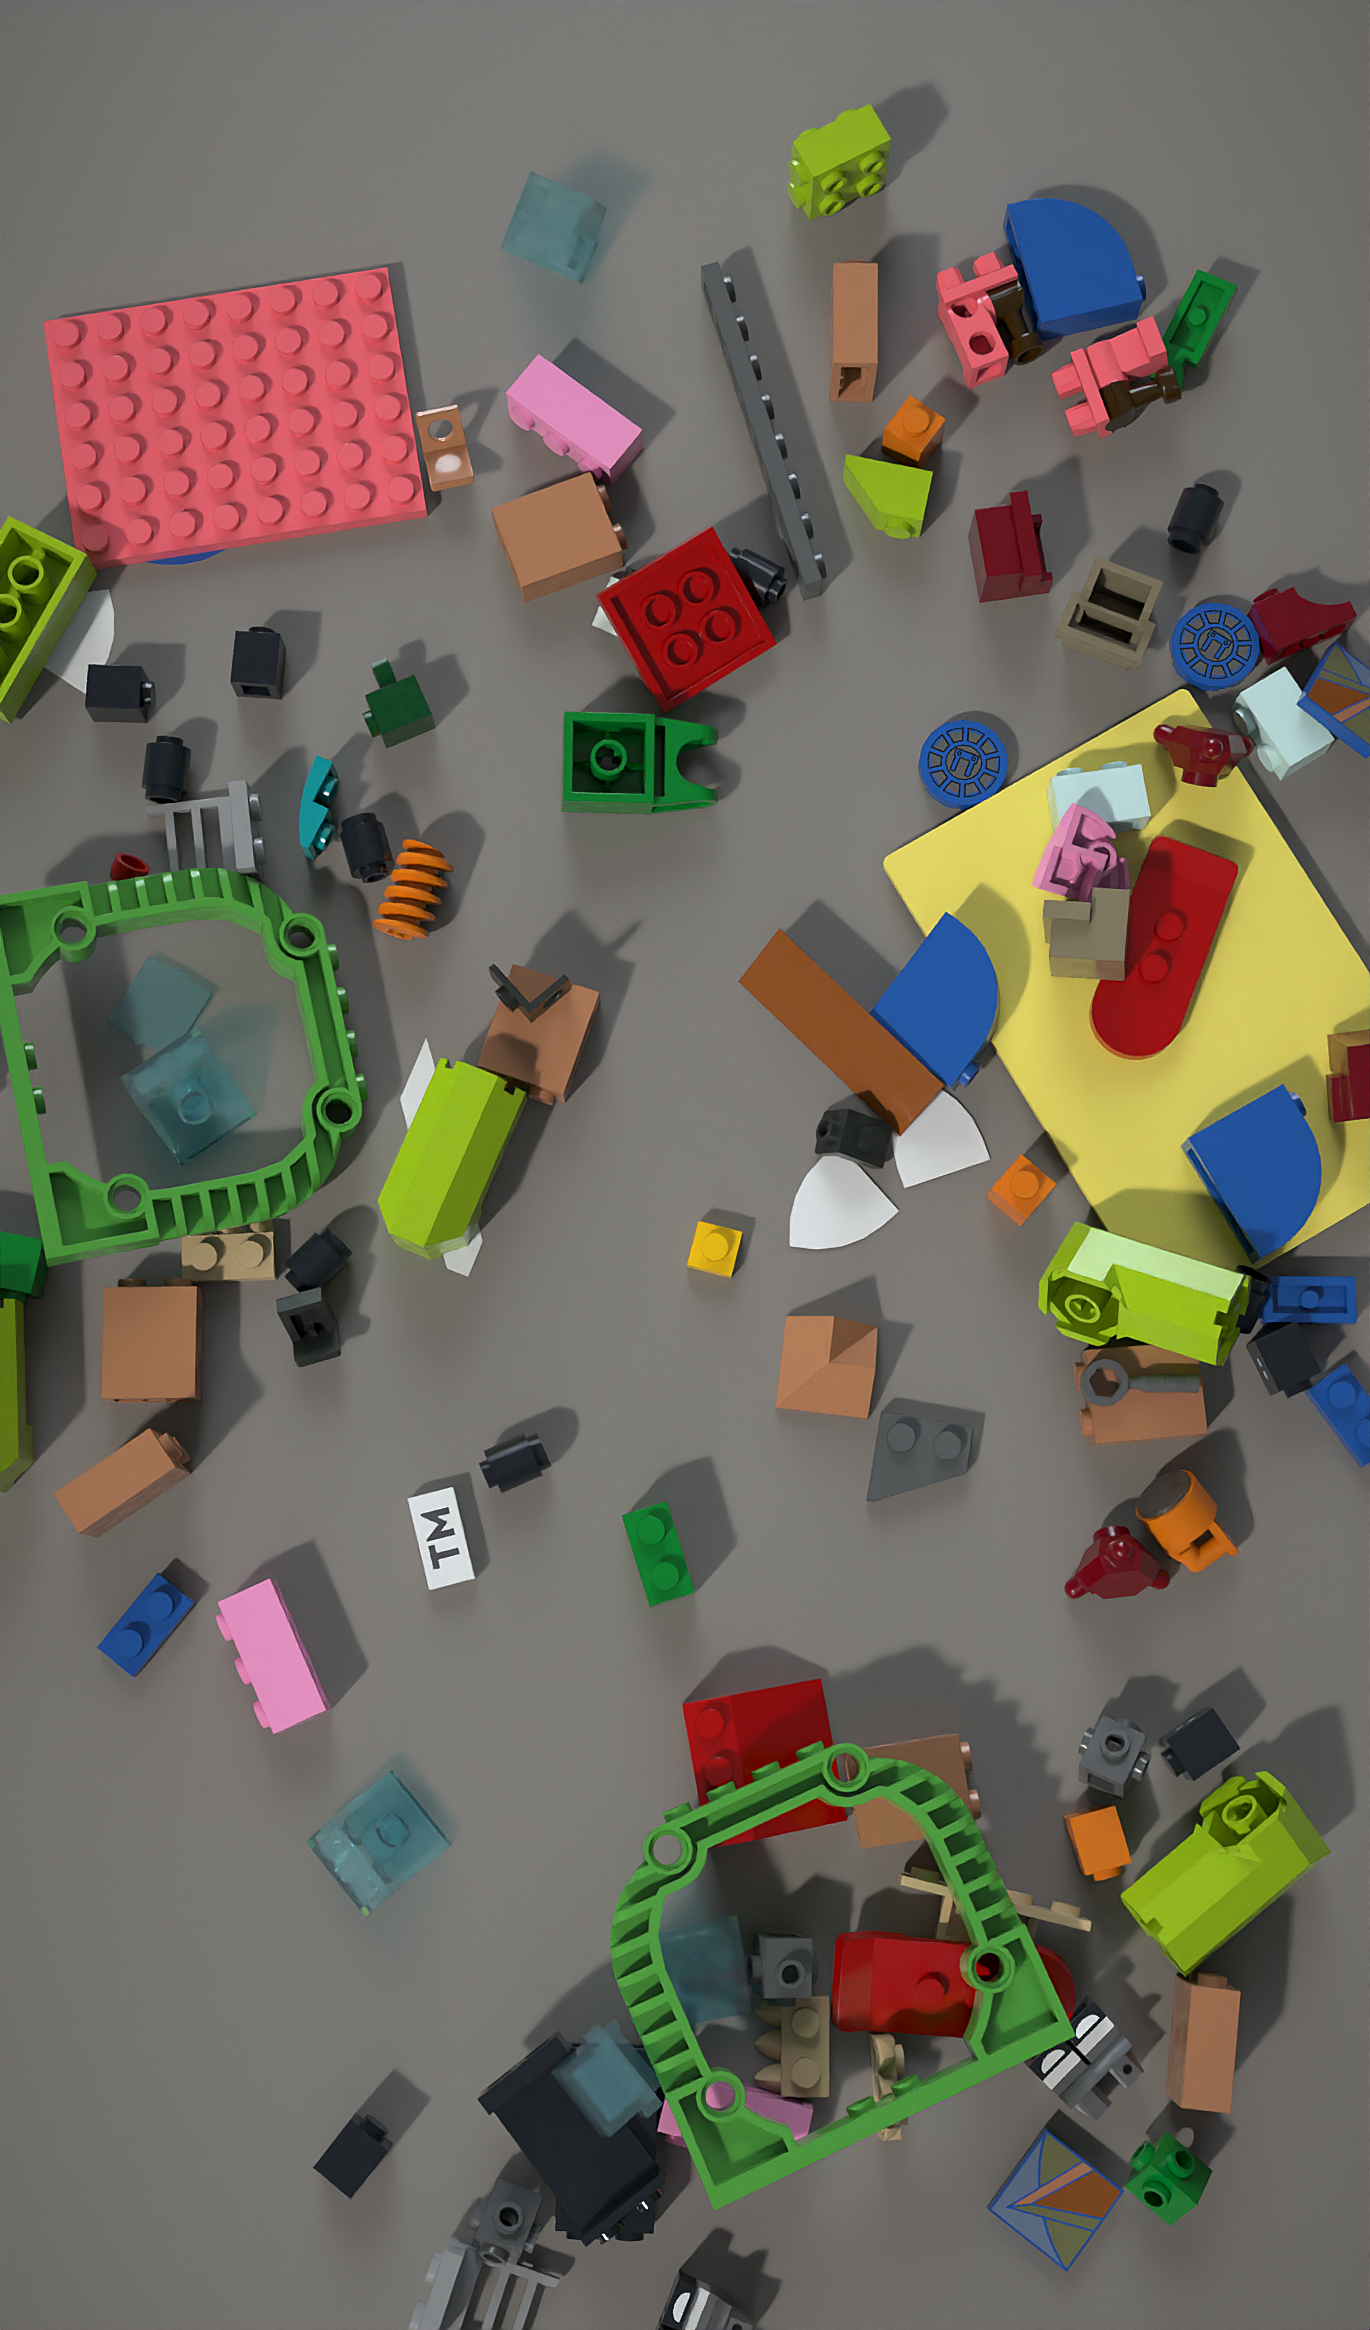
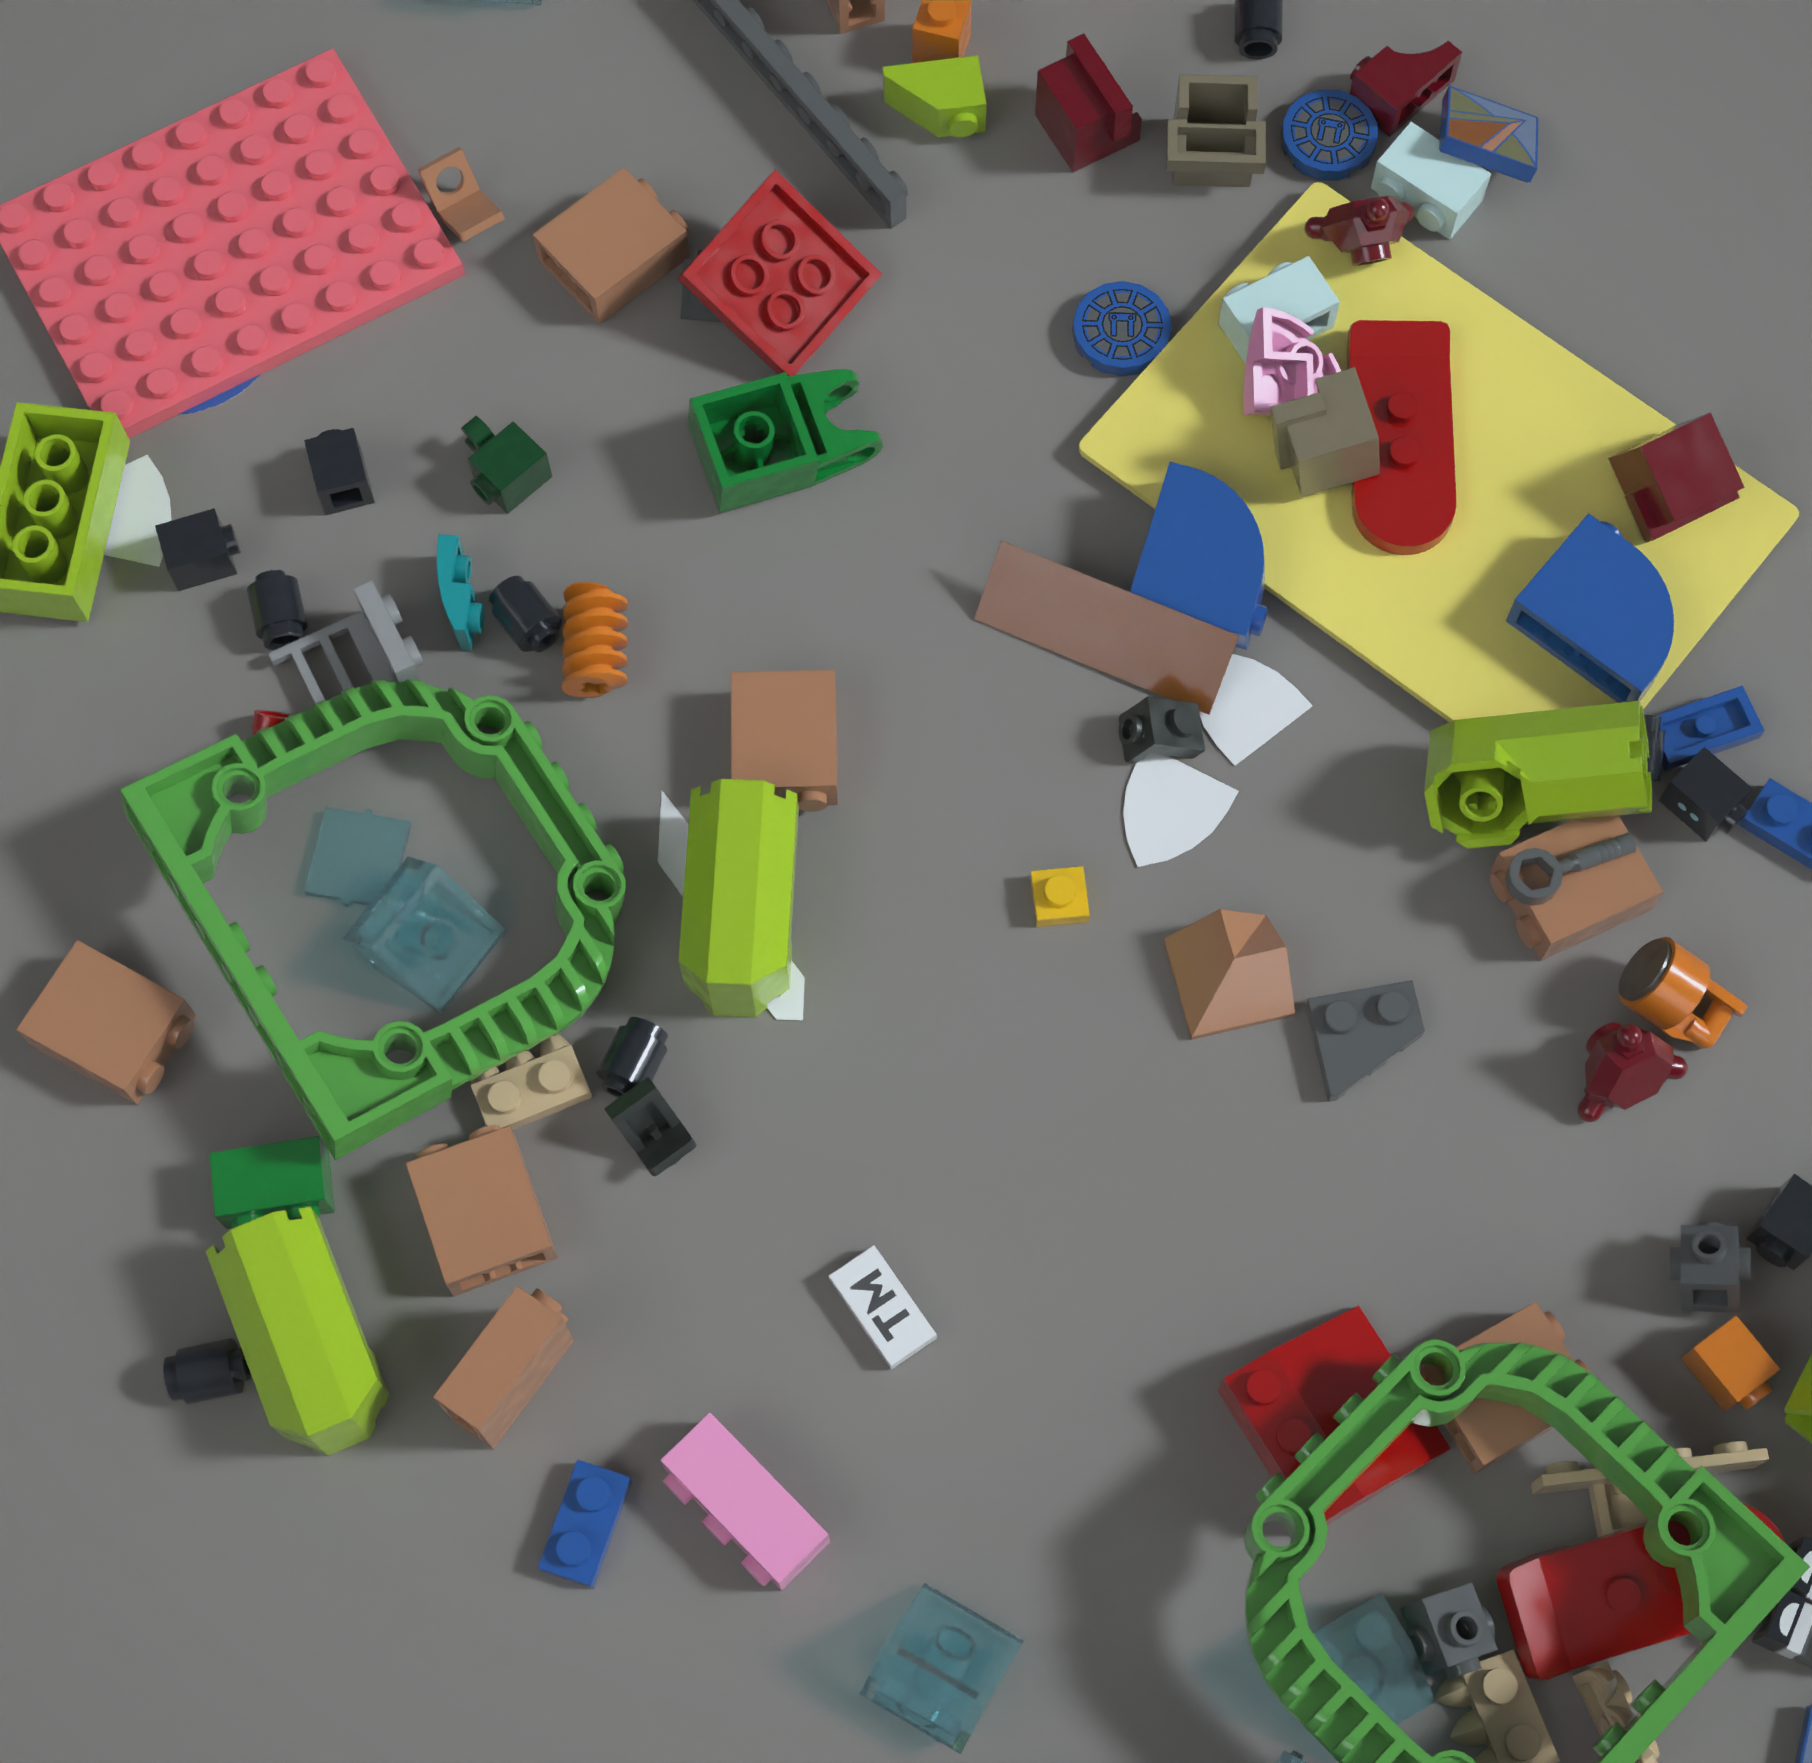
camera: 20 degrees left, 10 degrees down
(514, 999) = (751, 701): pearl dark grey bracket -> none
(514, 1462) = (933, 1192): black brick -> none
(574, 421) = (585, 128): bright pink brick -> none
(658, 1554) = (1130, 1233): green brick -> none
(760, 576) = (843, 212): black brick -> none
(1021, 1190) = (1360, 719): orange brick -> none

